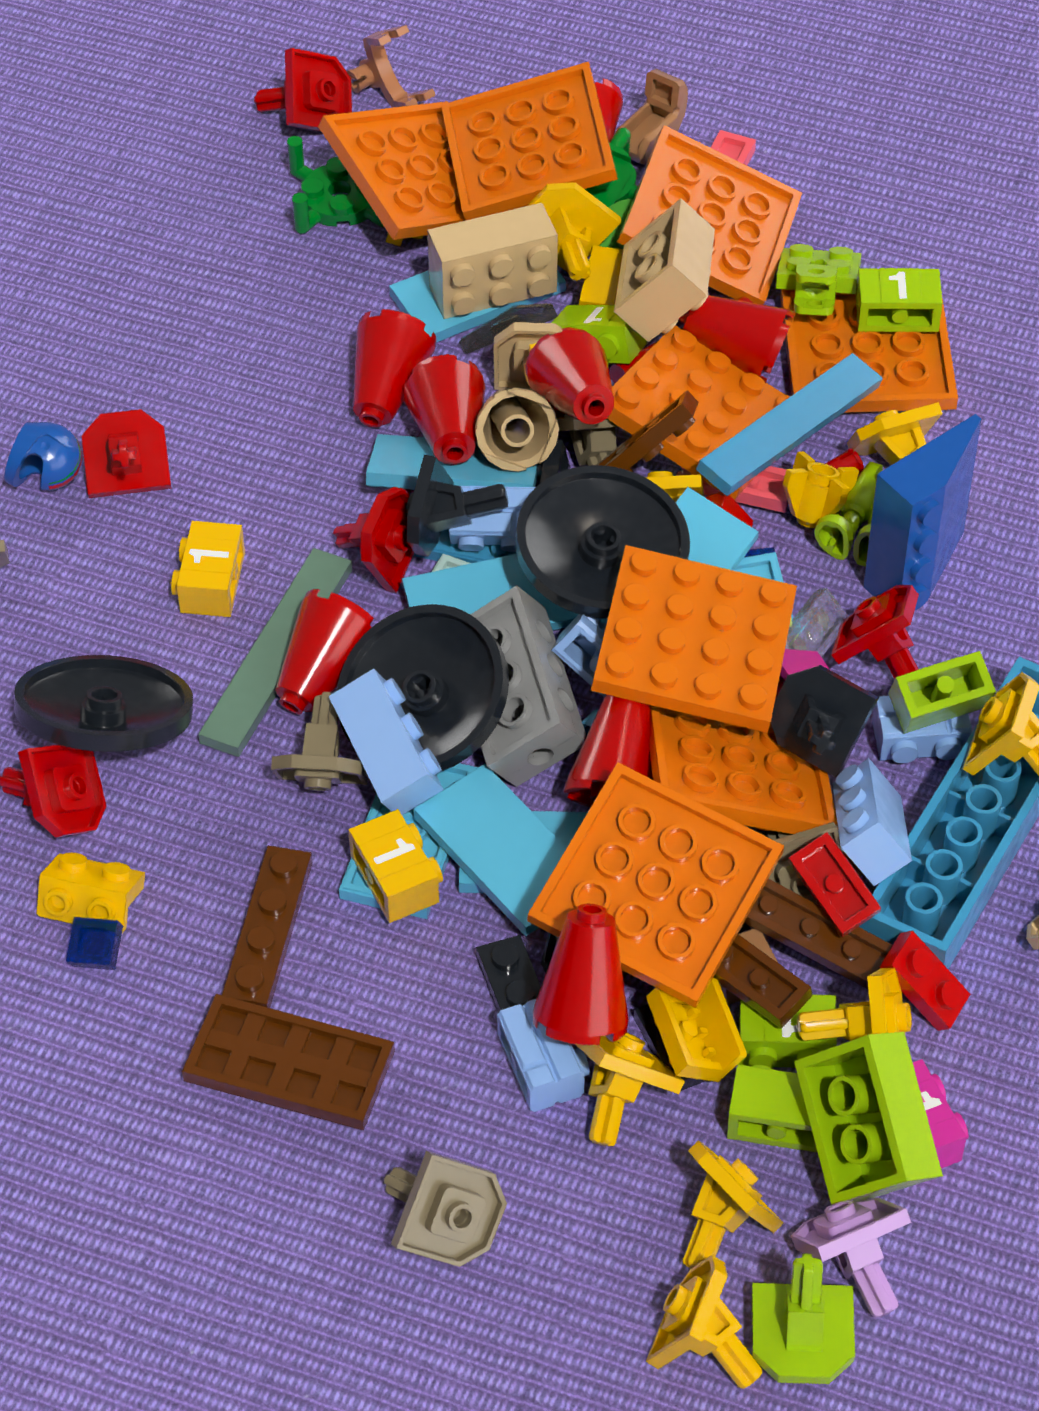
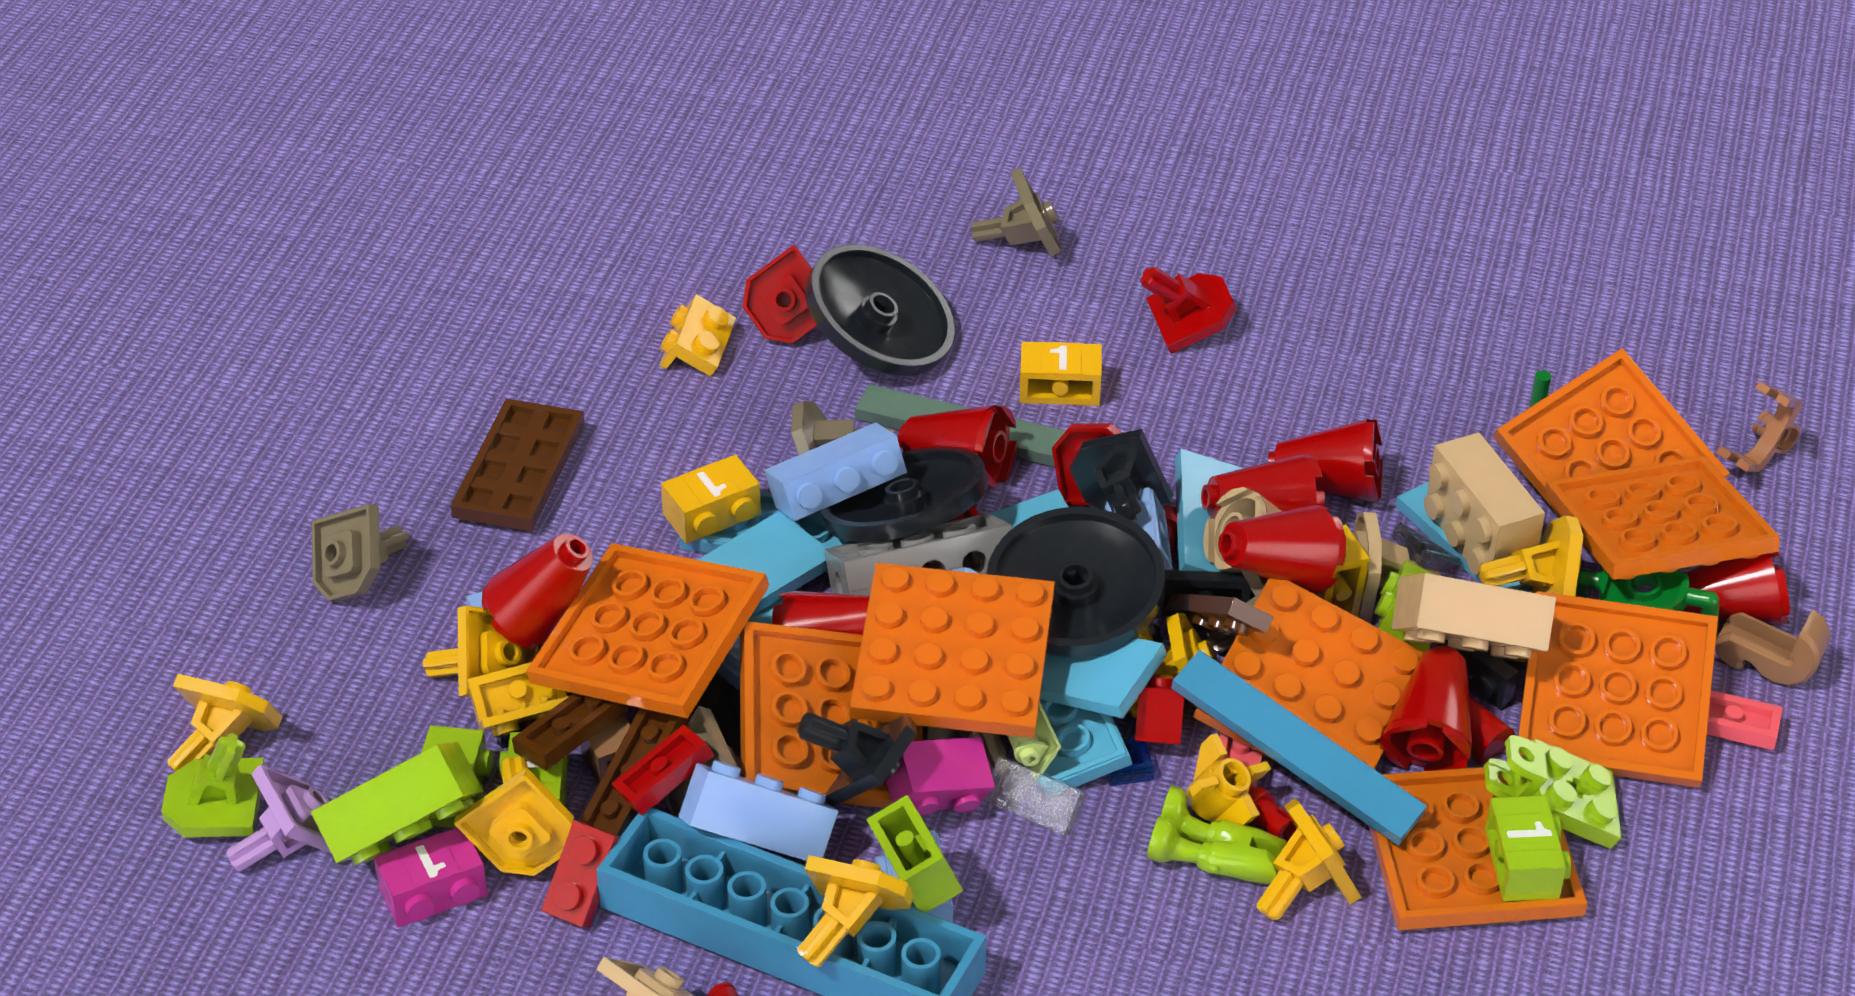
camera: 85 degrees right, 10 degrees down
(47, 451) = (1176, 249): blue helmet -> none
(94, 943) = (639, 343): clear blue plate -> none
(268, 926) = (658, 445): reddish brown plate -> none
(312, 88) = (1714, 383): red piece -> none
(724, 1203) = (350, 732): yellow piece -> none
(880, 627) = (1021, 844): red piece -> none
(921, 512) = (1156, 838): blue slope -> none

